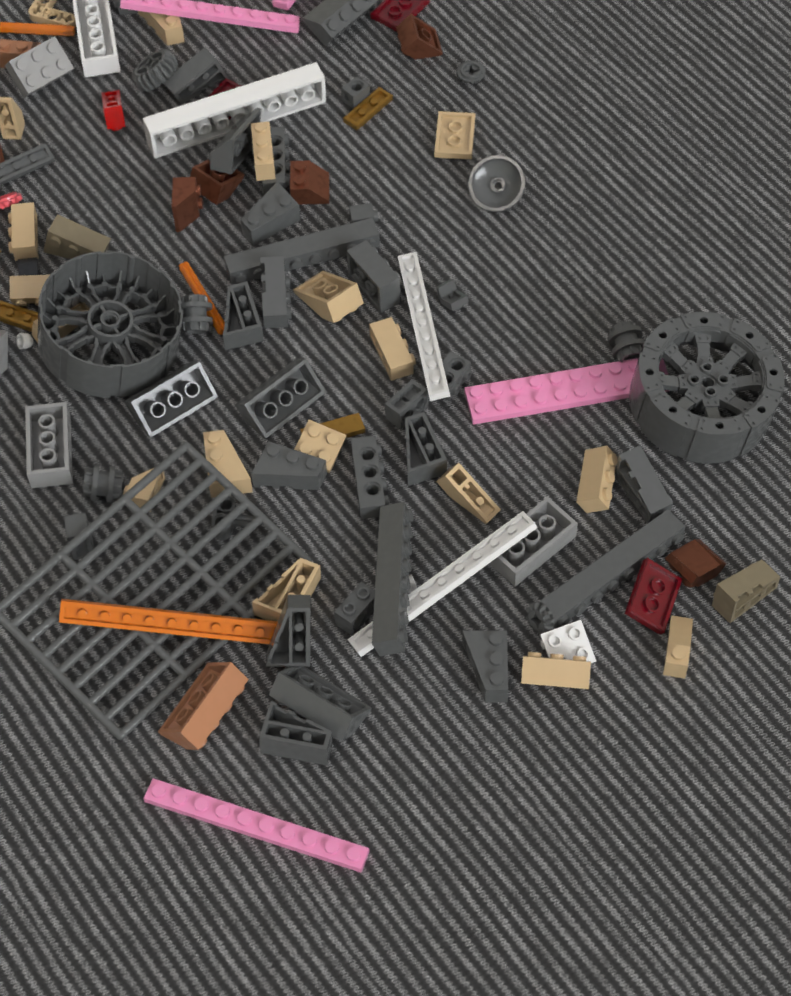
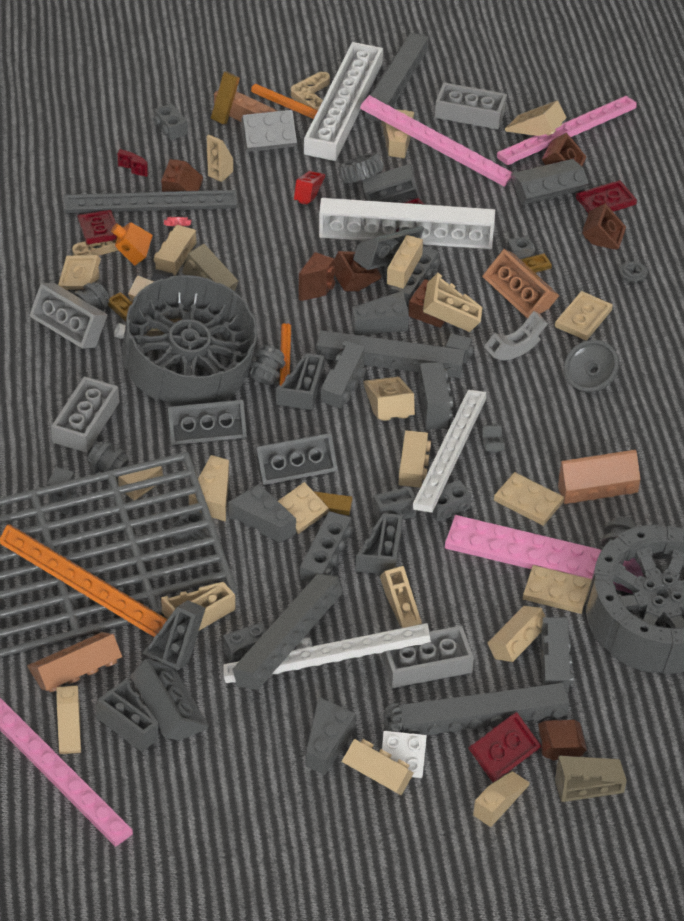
camera: 25 degrees right, 10 degrees down
(237, 768) = (68, 719): none -> tan slope
(332, 178) = (450, 305): none -> tan wedge
(379, 129) = (520, 284): none -> nougat slope
(415, 185) = (518, 343): none -> light grey arch
(518, 340) = (528, 498): none -> tan plate
(572, 292) = (599, 476): none -> nougat slope
(599, 418) = (557, 589): none -> tan plate

